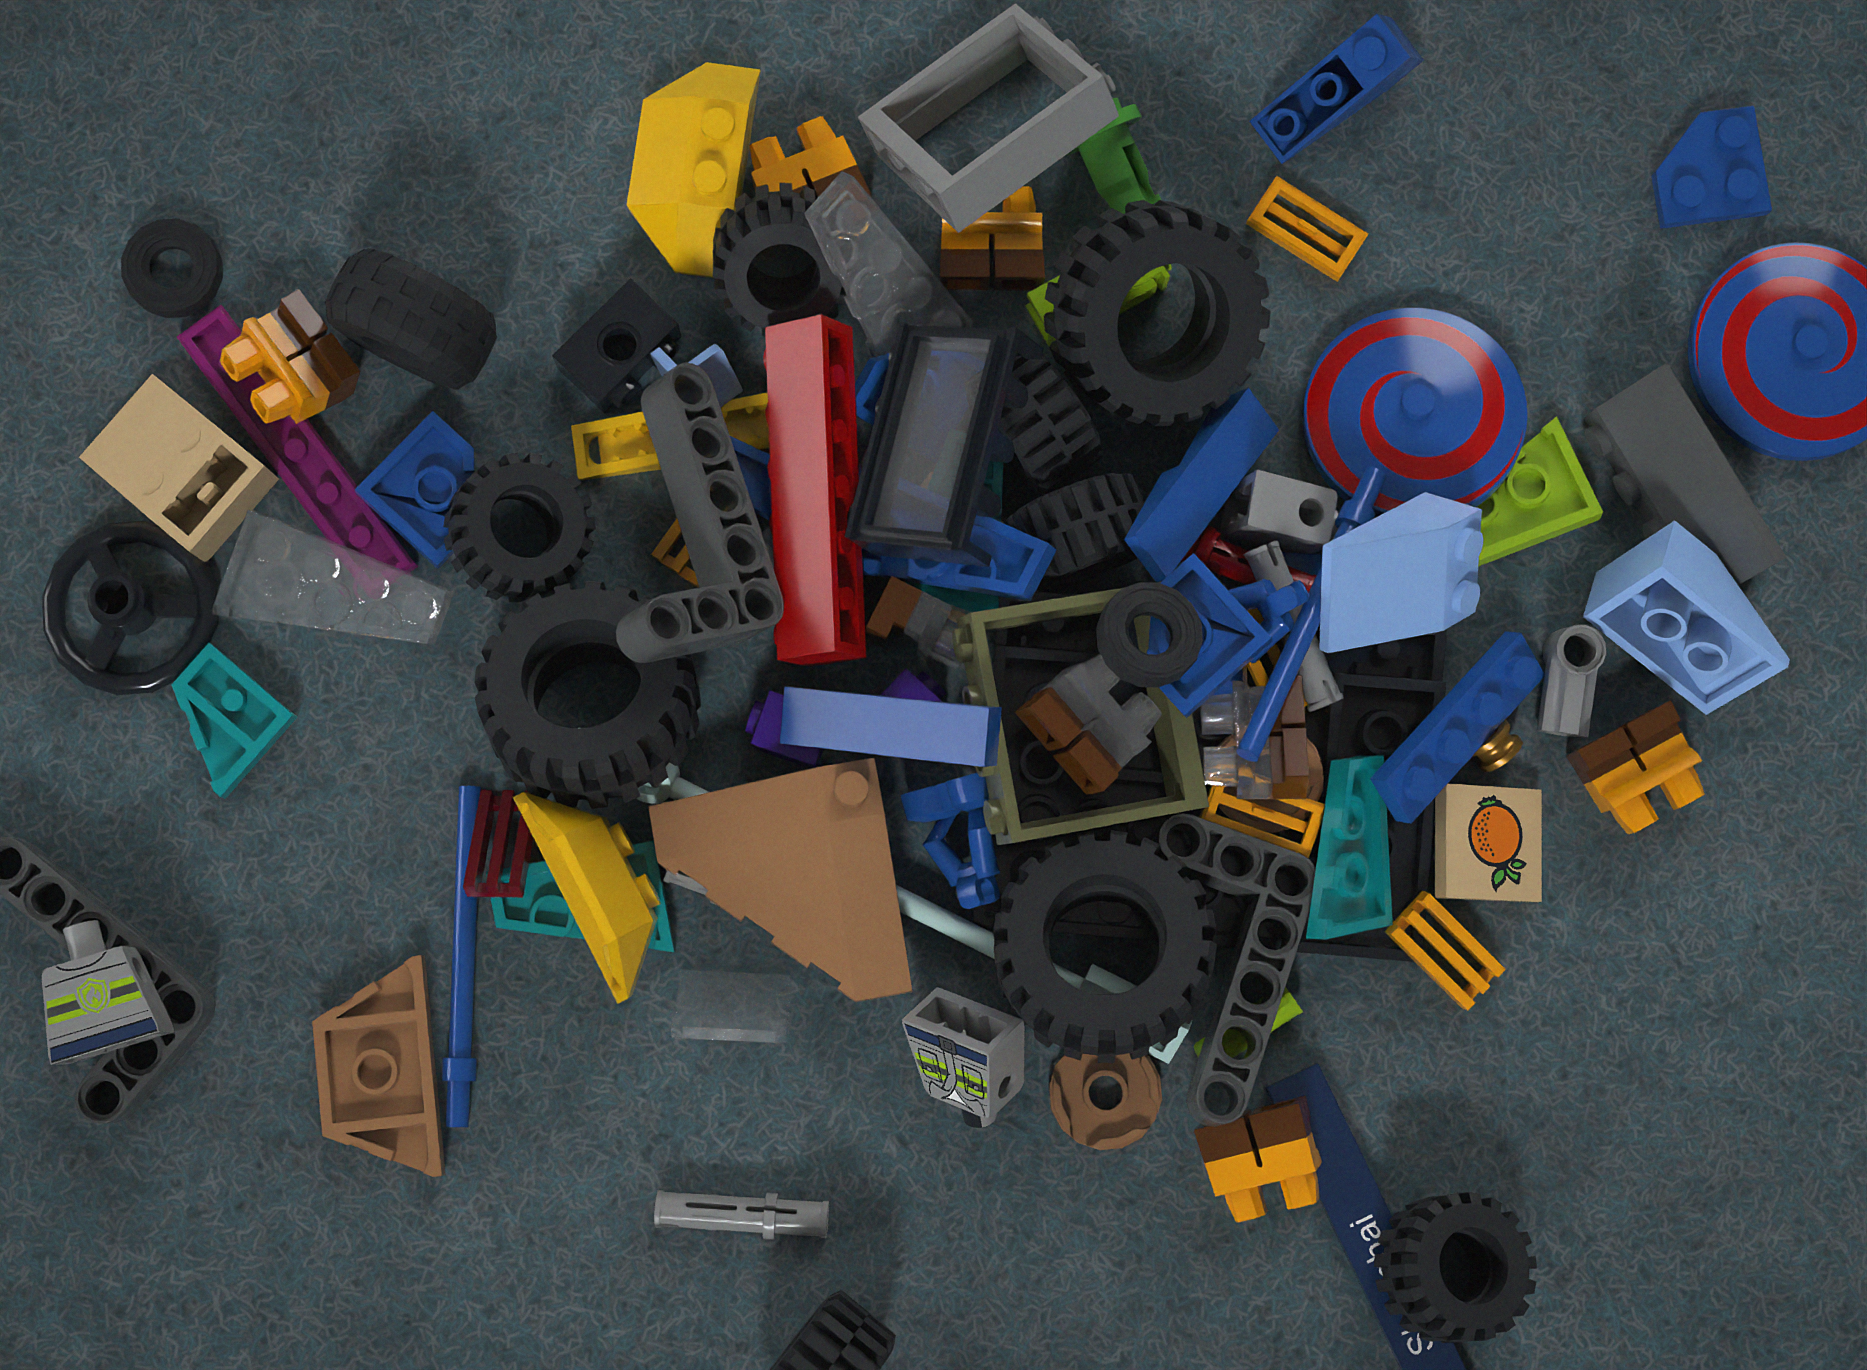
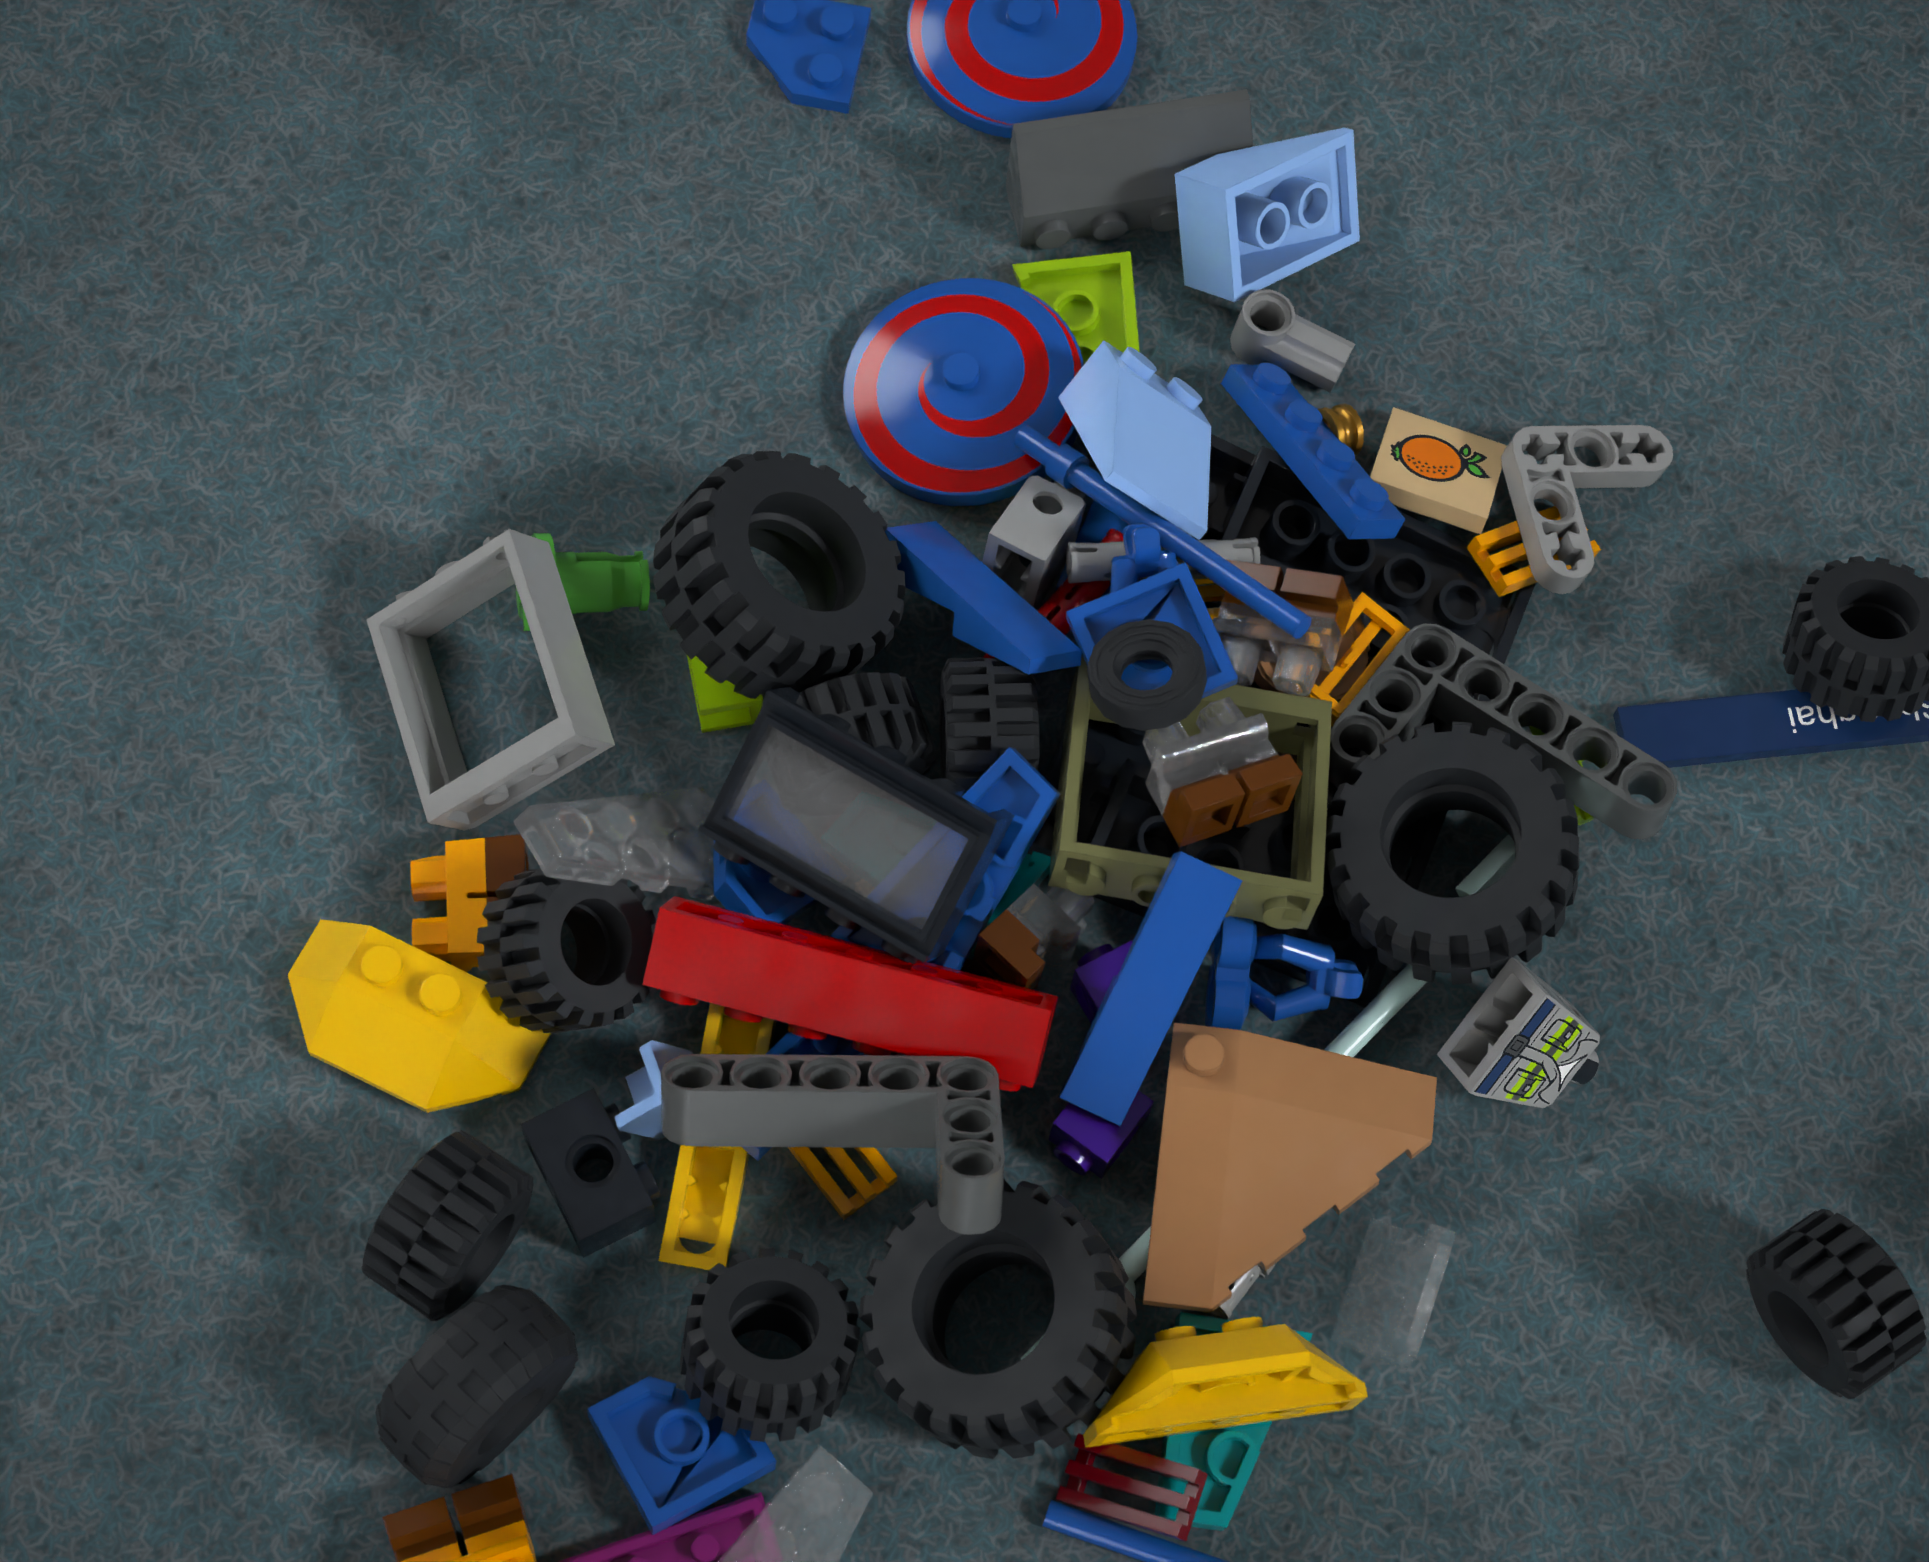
camera: 75 degrees left, 15 degrees down
(528, 251) = (447, 1225): none -> black tyre
(742, 1214) = (1637, 1326): light grey pin -> none
(1016, 243) = (645, 731): hips -> none
(1110, 1127) = (1629, 940): medium nougat tile -> none
(1259, 1150) = (1718, 760): hips -> none
(1295, 245) = (749, 438): light orange tile -> none
(1337, 87) = (588, 347): blue slope -> none
(1353, 854) = (1418, 587): teal wing -> none
(1513, 948) = (1556, 482): none -> light grey beam
(1636, 759) = (1393, 311): light orange hips -> none

